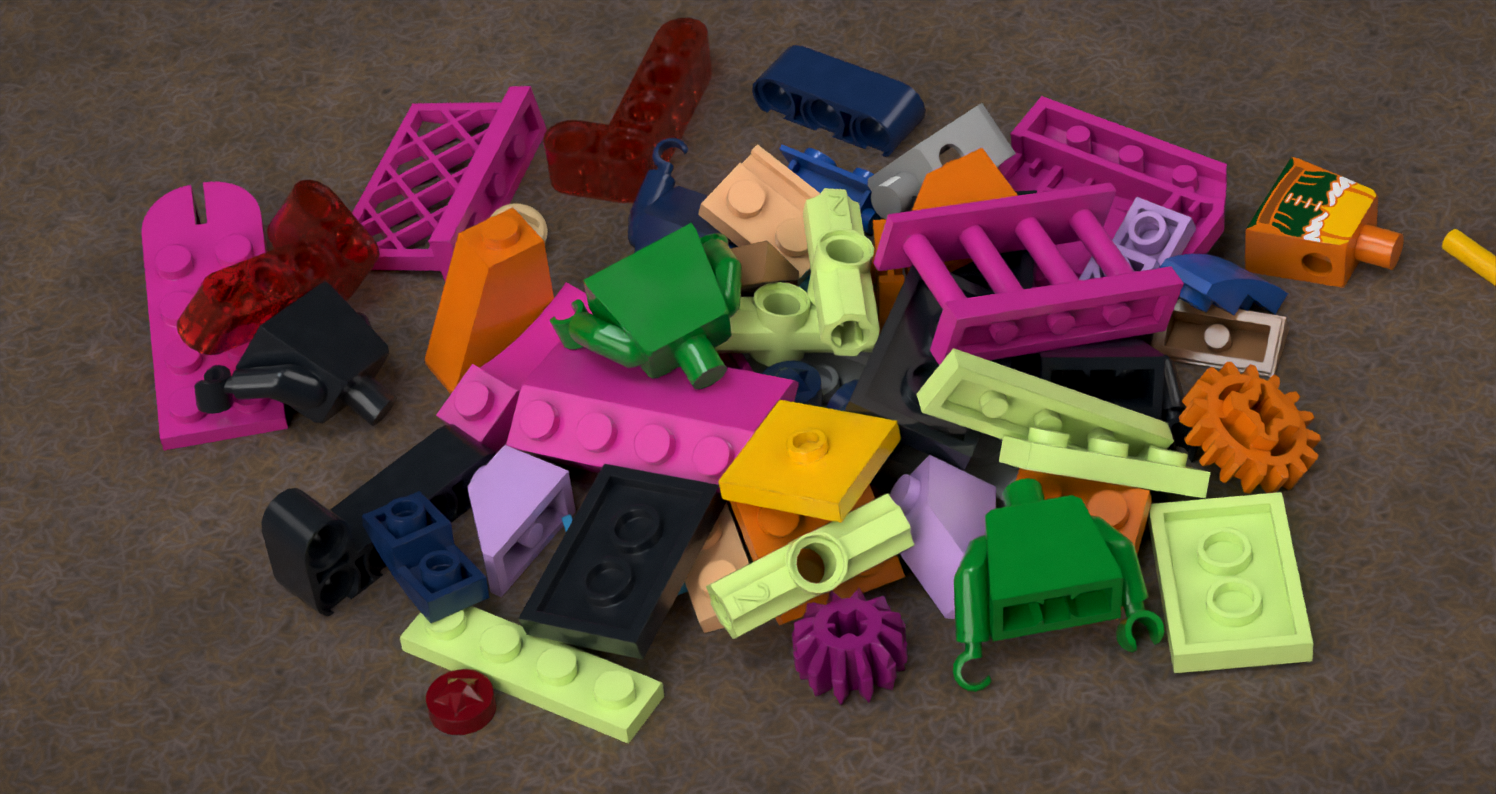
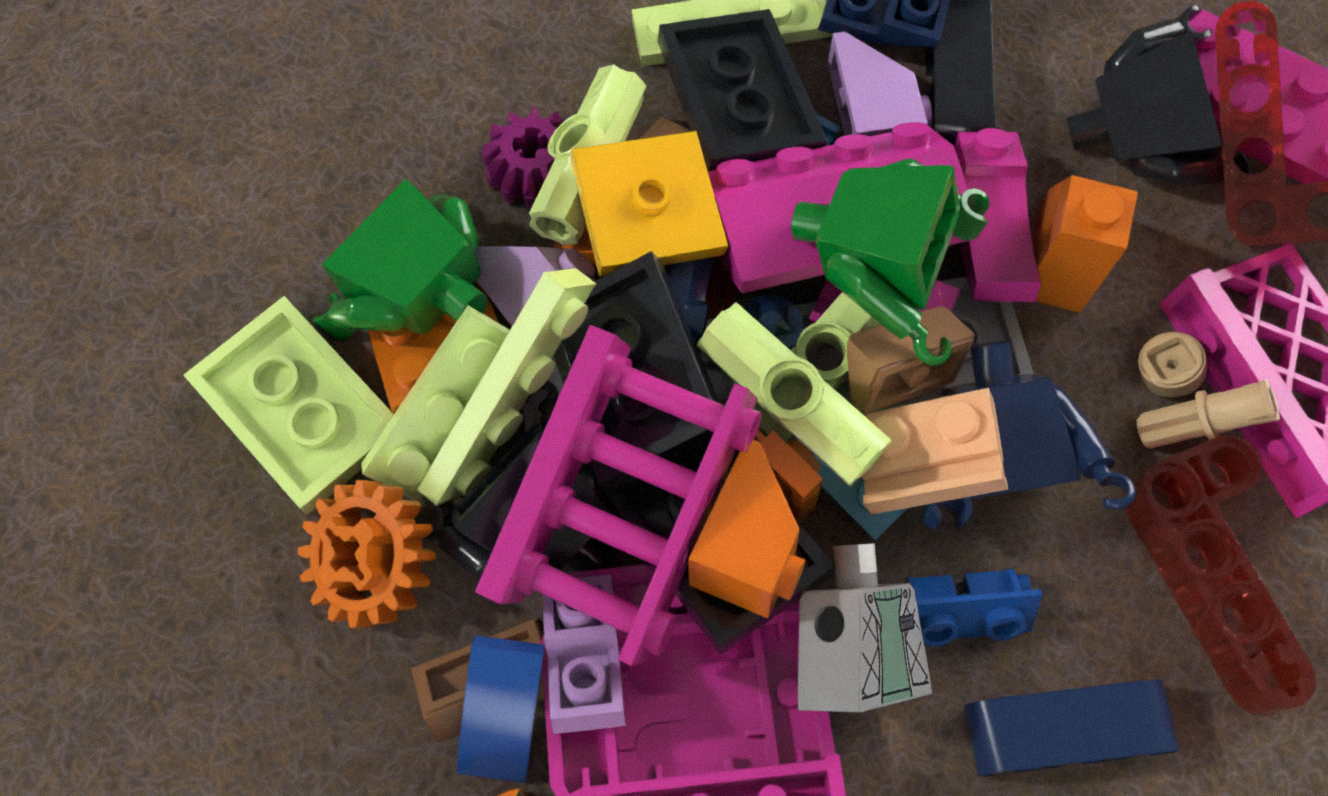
camera: 135 degrees right, 25 degrees up
(545, 177) = (1209, 415): none -> tan axle

